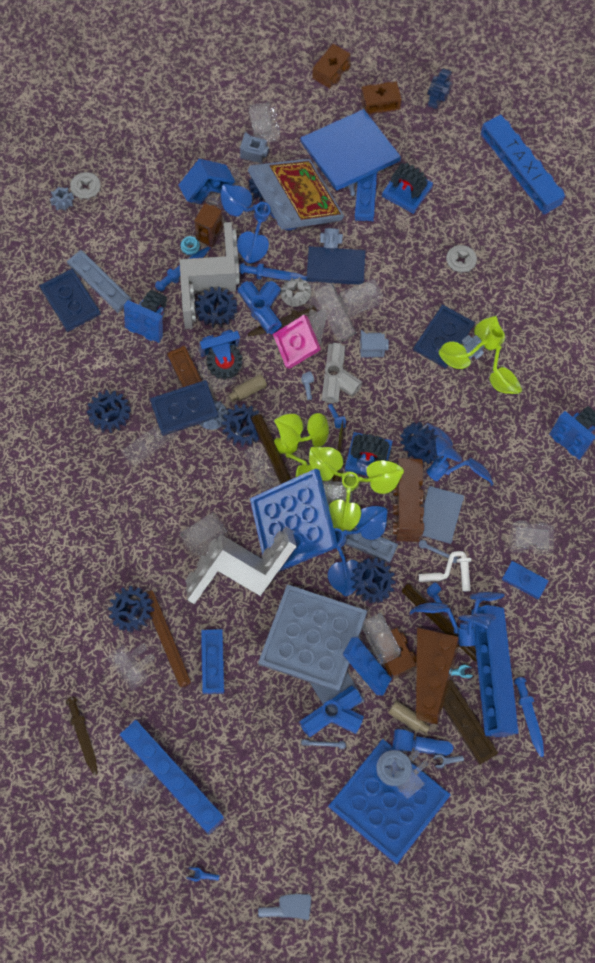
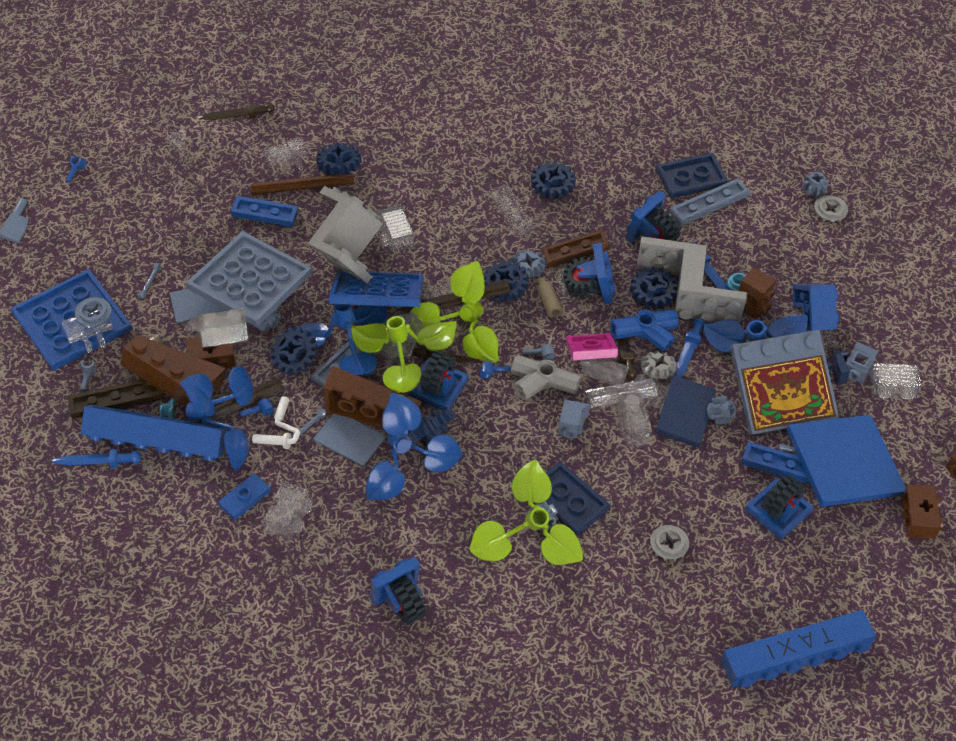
camera: 105 degrees right, 15 degrees down
(172, 777) = (168, 159): blue brick -> none
(184, 407) = (538, 236): dark blue tile -> none
(264, 158) = (839, 366): none -> dark blue slope
(344, 716) = (172, 291): blue piece -> none
(367, 666) = (212, 301): blue plate -> none
(405, 741) = (116, 341): blue piece -> none
(439, 88) = (924, 572): dark blue gear -> none

